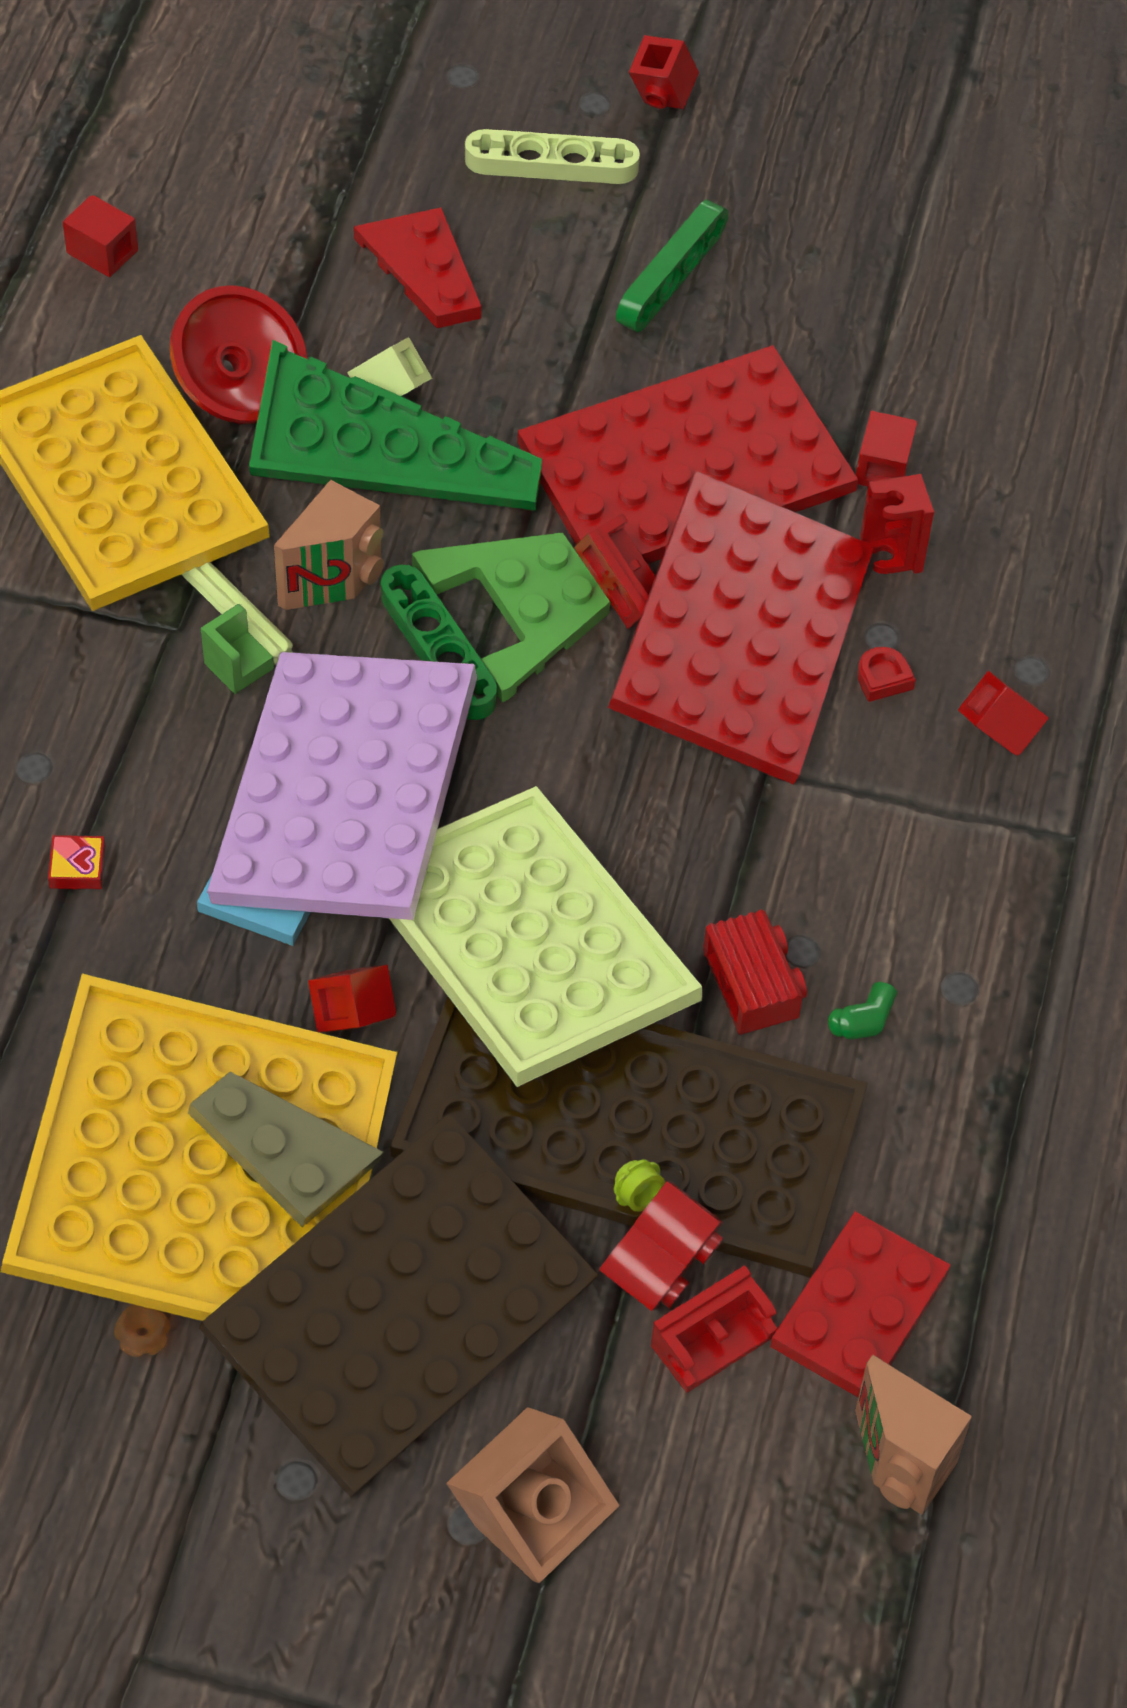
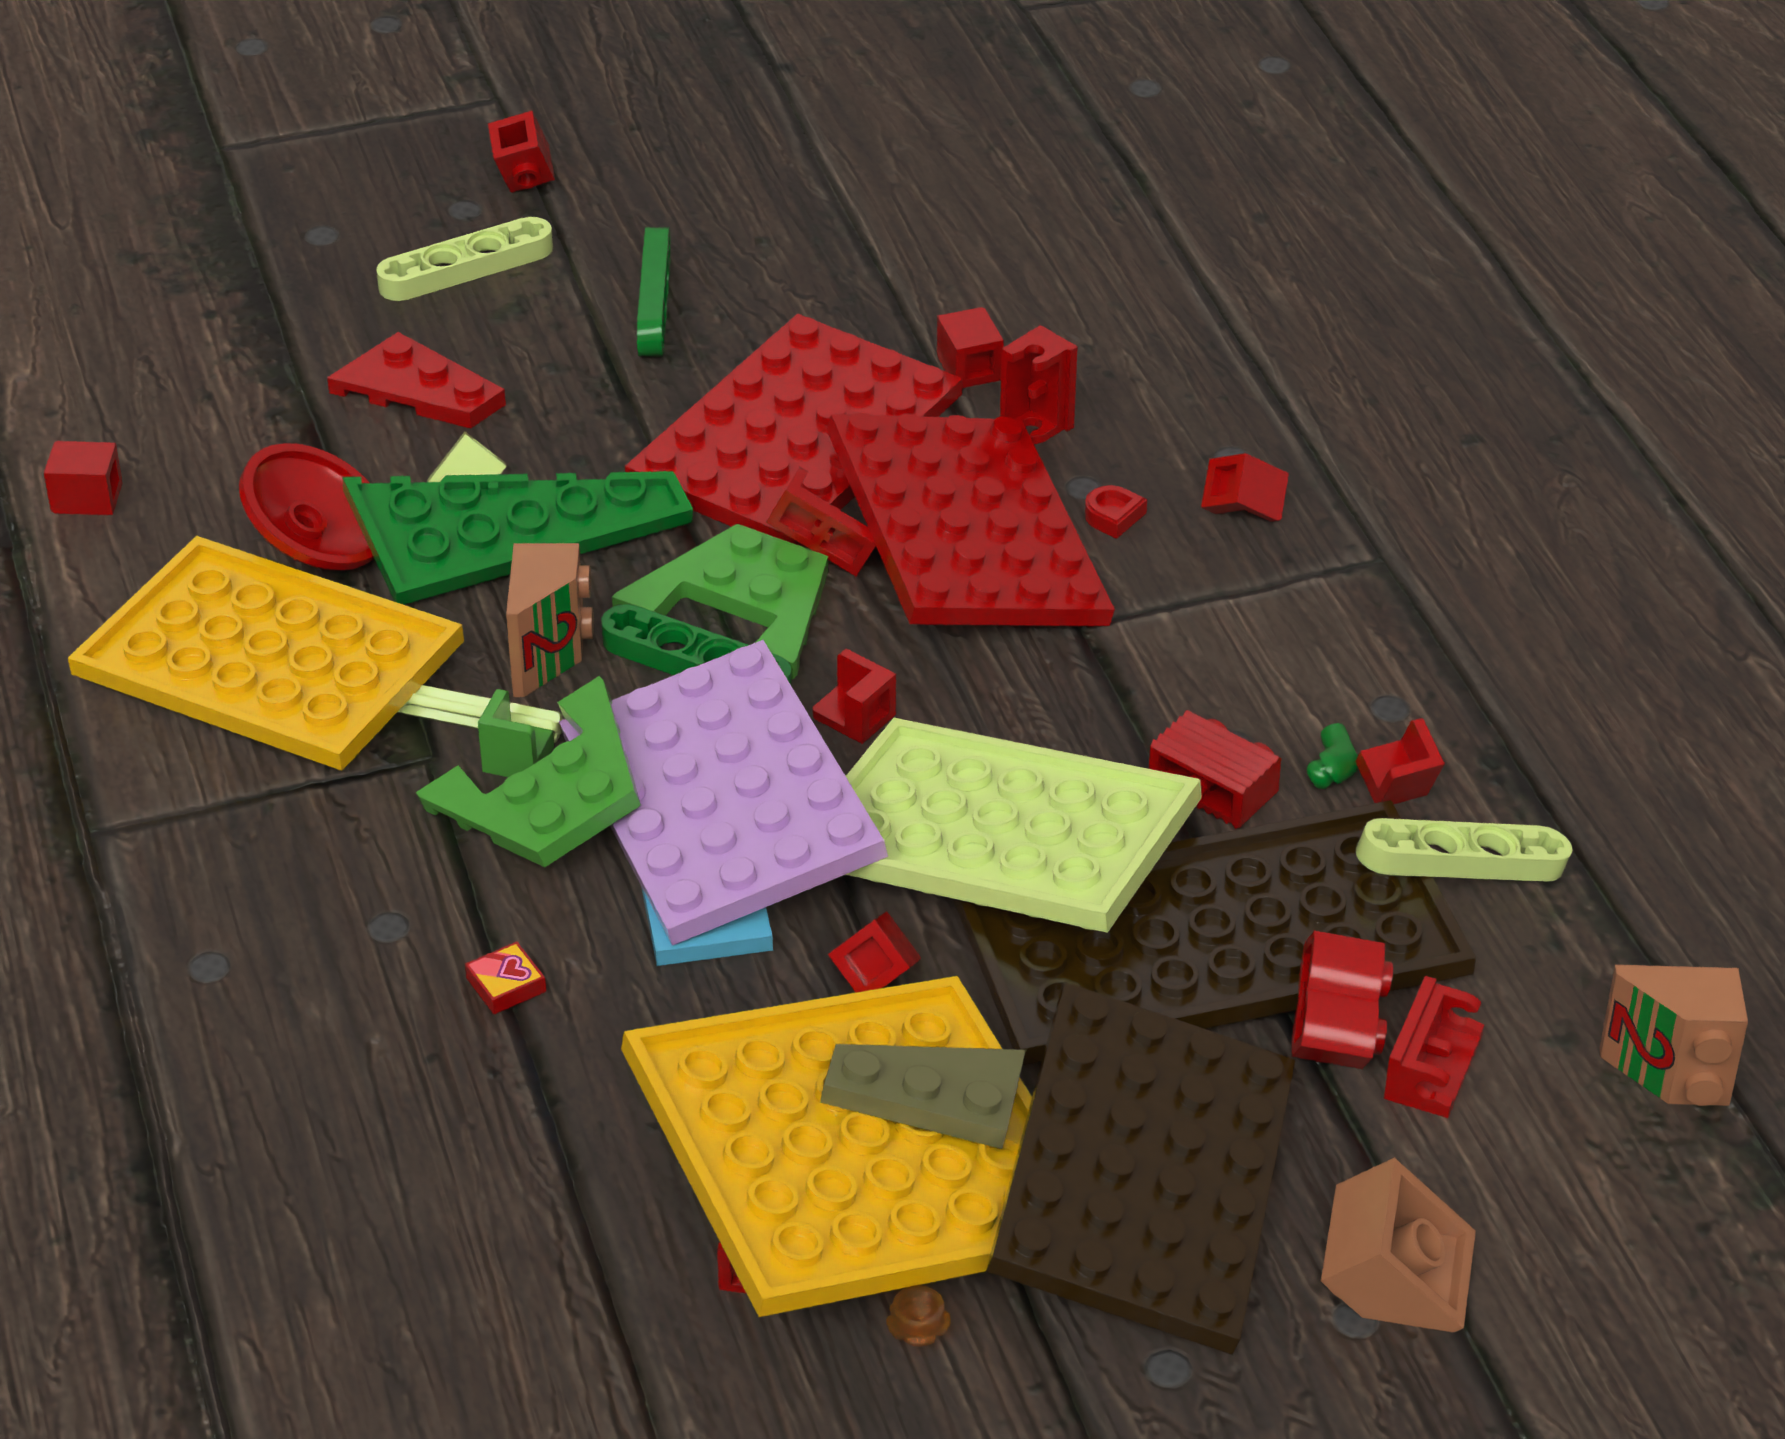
camera: 30 degrees left, 15 degrees down
(223, 726) = (555, 800): none -> bright green wing
(527, 754) = (861, 699): none -> red panel
(638, 1184) = (1277, 961): lime plate -> none
(860, 1303) = (1535, 974): red plate -> none
(882, 1172) = (1402, 849): none -> yellowish green beam
(901, 1055) = (1403, 767): none -> red panel

